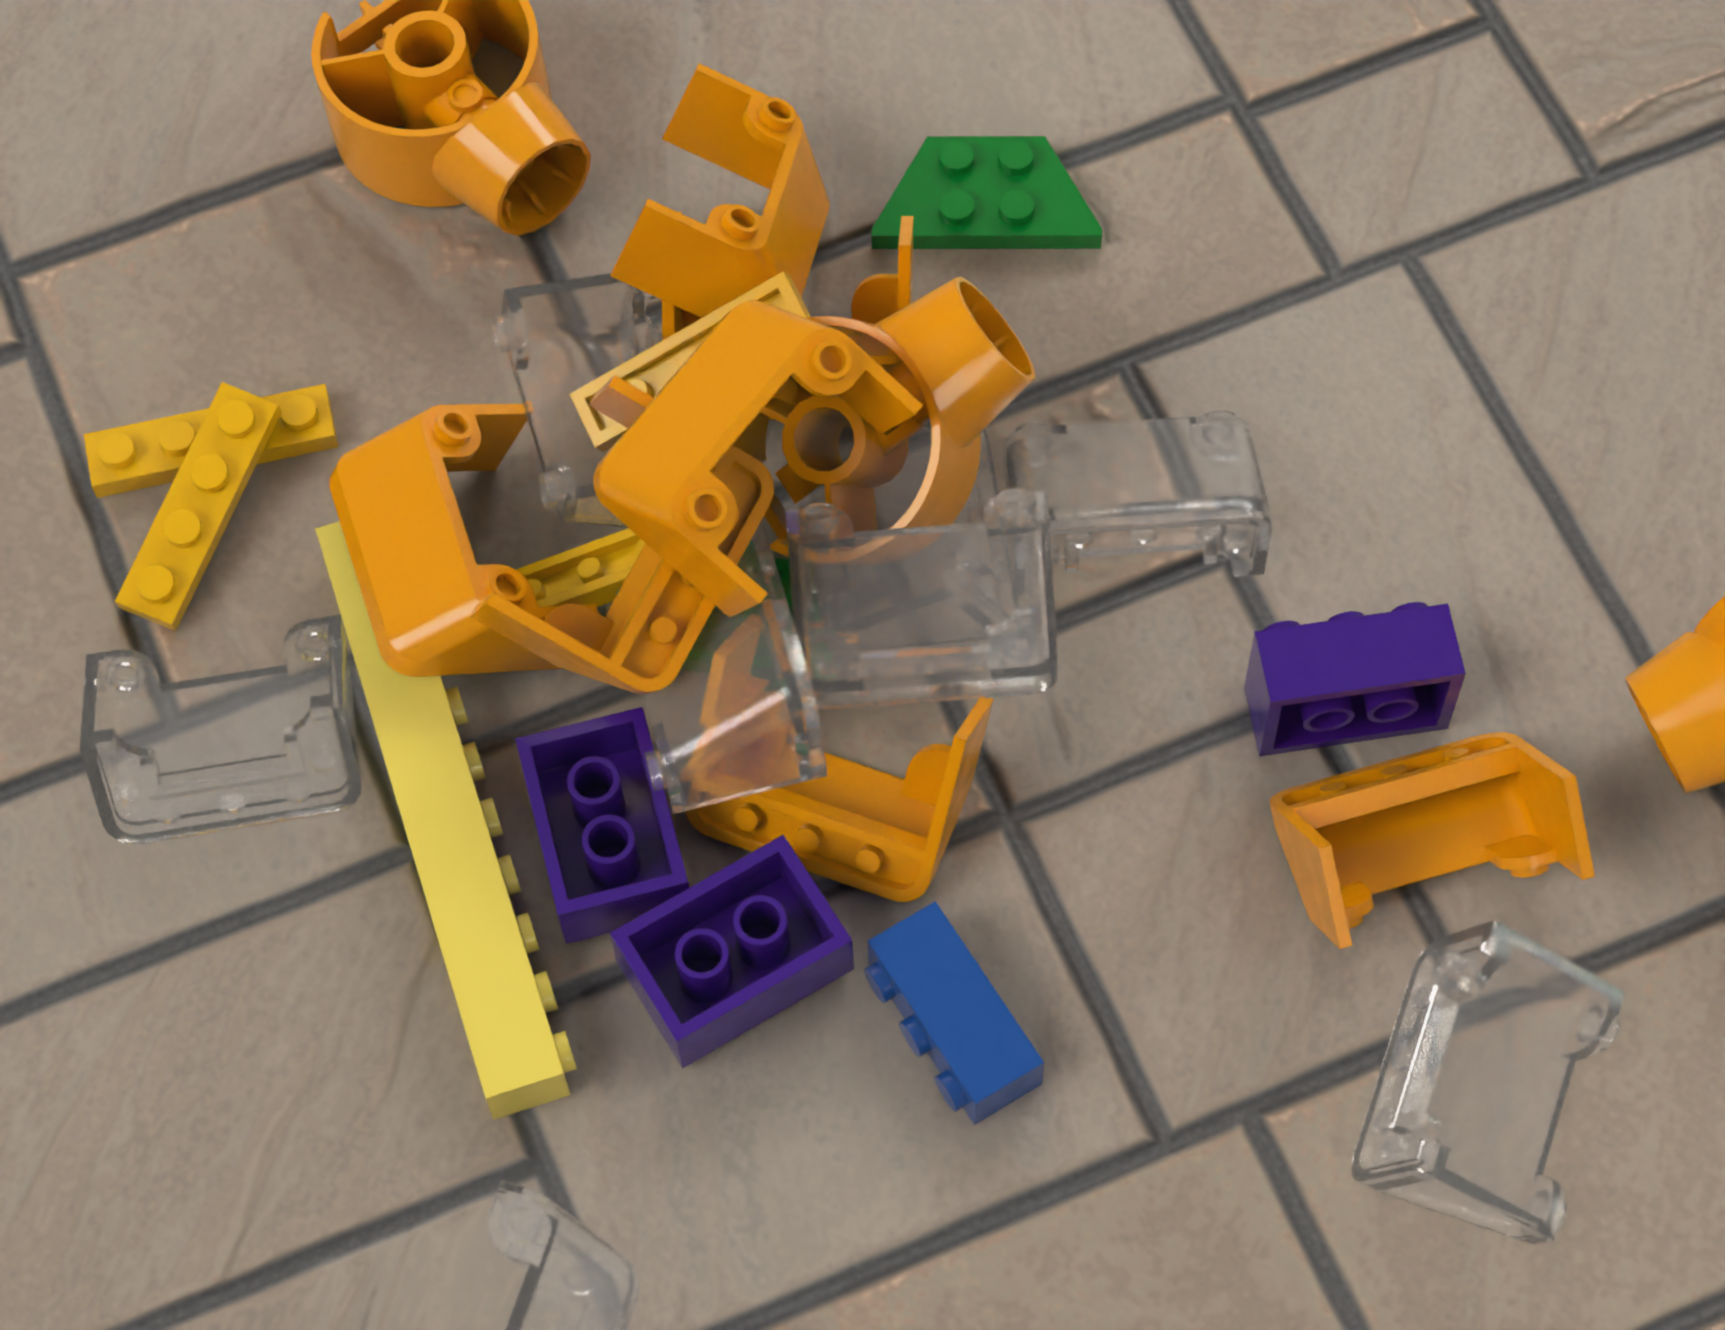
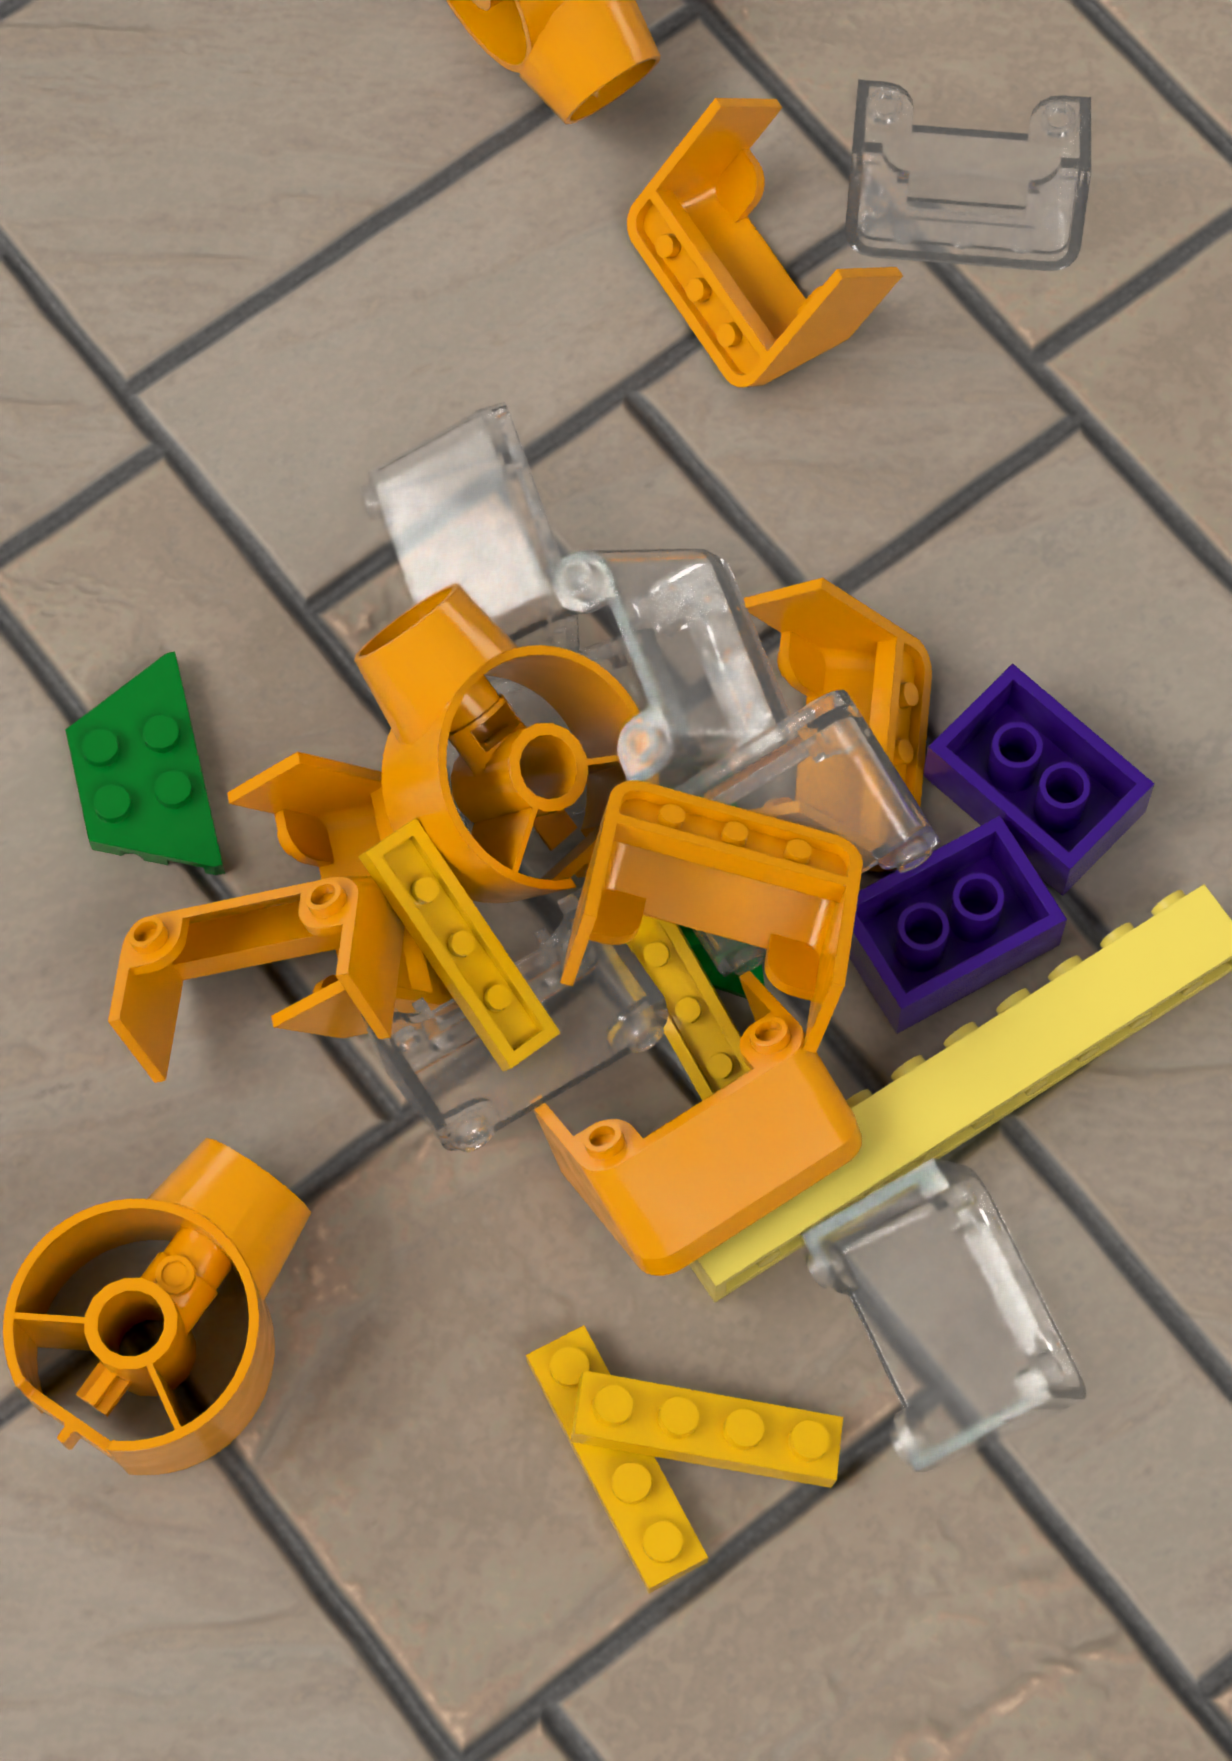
camera: 105 degrees left, 5 degrees up
(662, 465) = (611, 808): light orange windscreen -> none
(952, 1014) = (1030, 593): blue brick -> none
(1353, 678) = (624, 327): dark purple brick -> none

